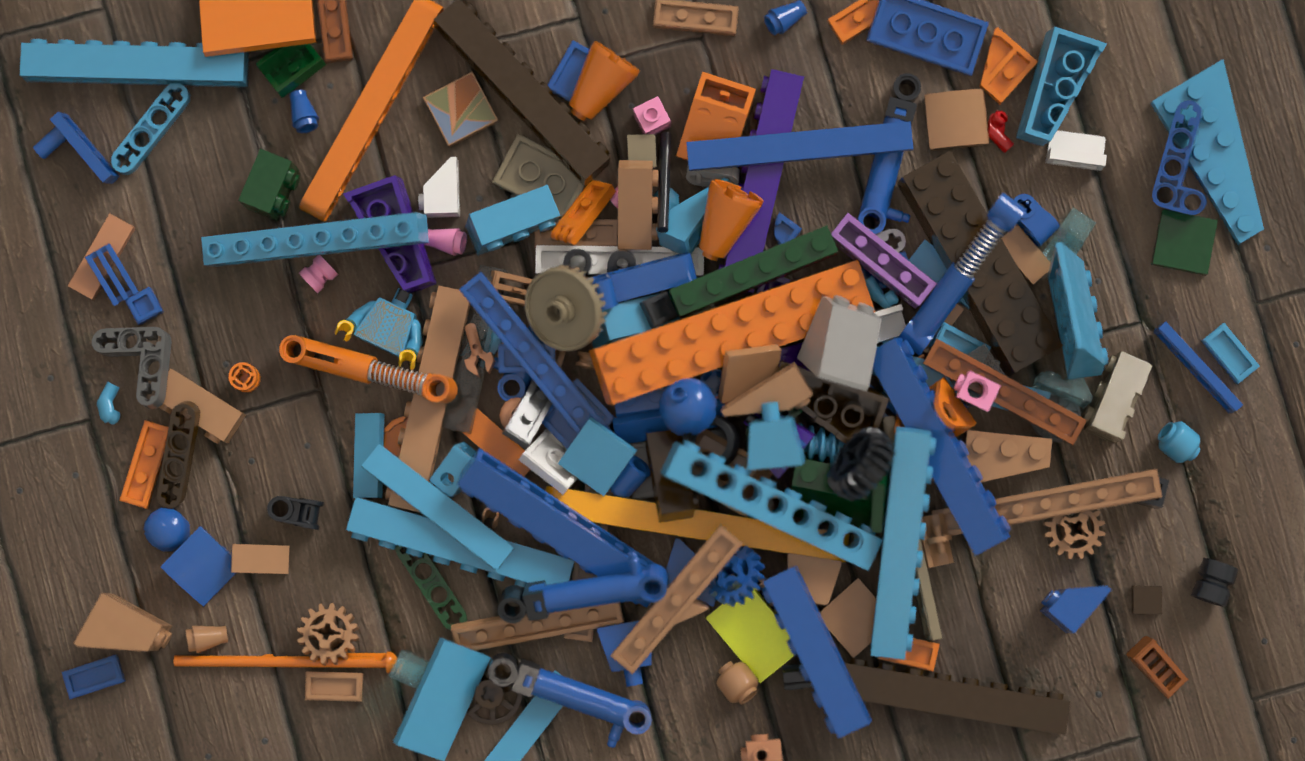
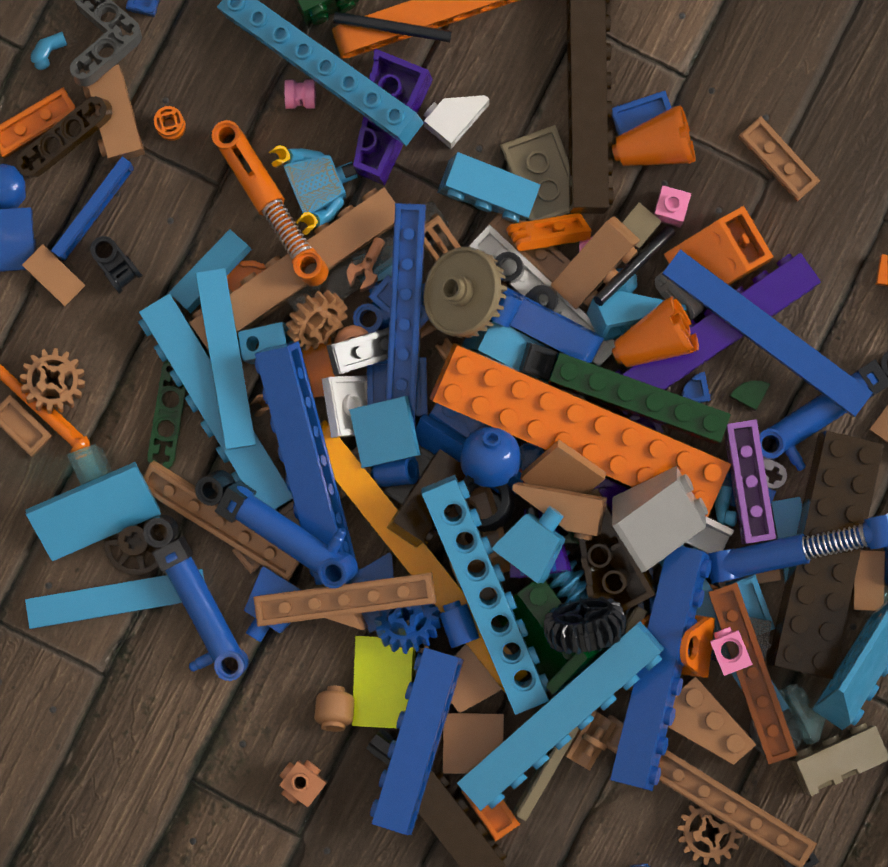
camera: 40 degrees right, 0 degrees up
(245, 487) = (93, 209): none -> blue tile
(341, 167) = (392, 26): none -> black bar
(447, 240) = (423, 158): bright pink cone -> none
(460, 109) = (527, 66): tile -> none
(477, 421) = (317, 320): none -> medium nougat gear
(771, 543) = (458, 624): none -> blue brick
(783, 17) = (847, 221): blue cone -> none
(825, 198) = (750, 393): none -> dark green tile
(1179, 442) = (856, 839): dark azure head -> none

